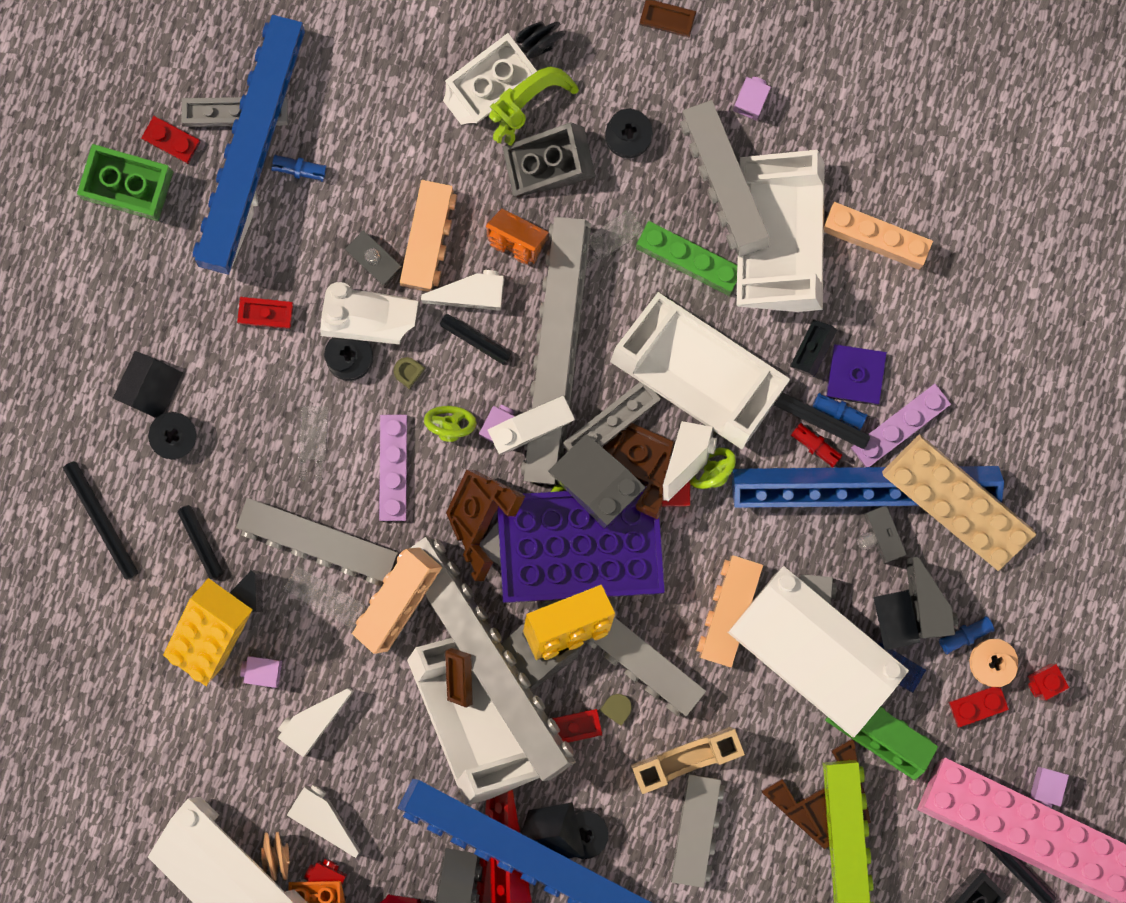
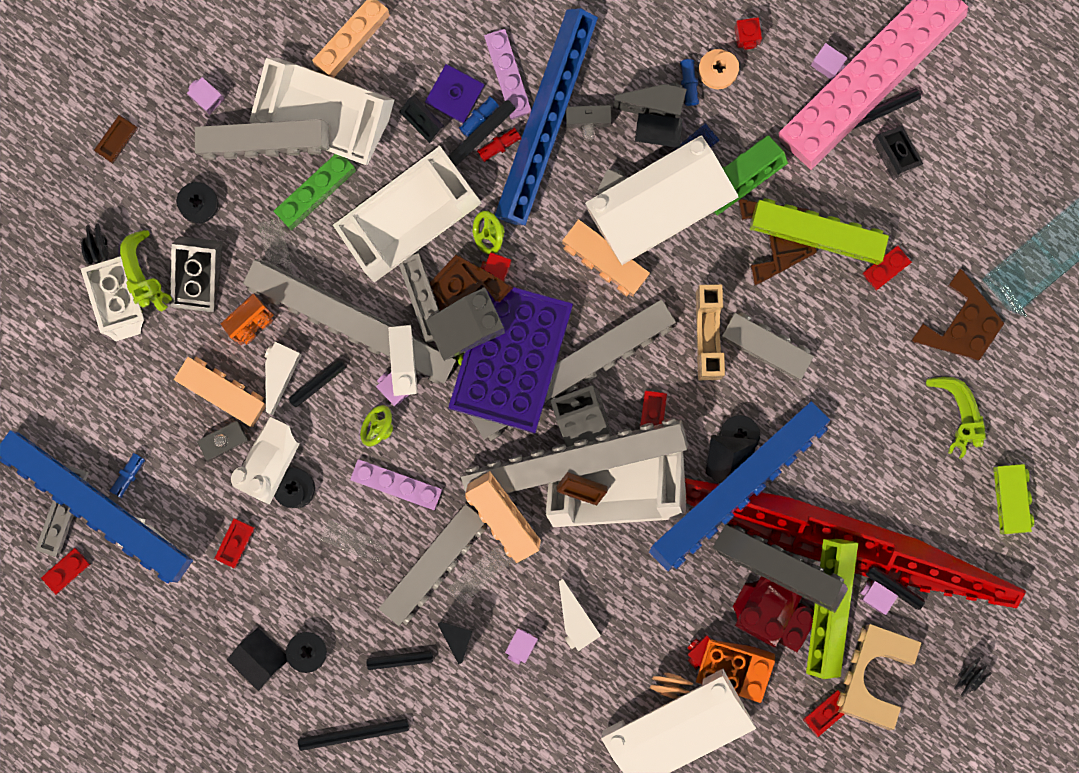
camera: 65 degrees left, 0 degrees up
(125, 182) = (87, 619): bright green brick -> none
(207, 632) = (474, 676): yellow brick -> none
(320, 816) = (651, 640): white slope -> none
(408, 371) = (323, 446): olive tile -> none
(472, 512) = (454, 432): reddish brown wing -> none
(569, 623) = (570, 385): yellow brick -> none
(617, 708) = (650, 374): olive tile -> none
(688, 456) = (472, 246): white slope -> none
(958, 502) = (584, 49): tan plate -> none
(978, 706) = (747, 93): red plate -> none

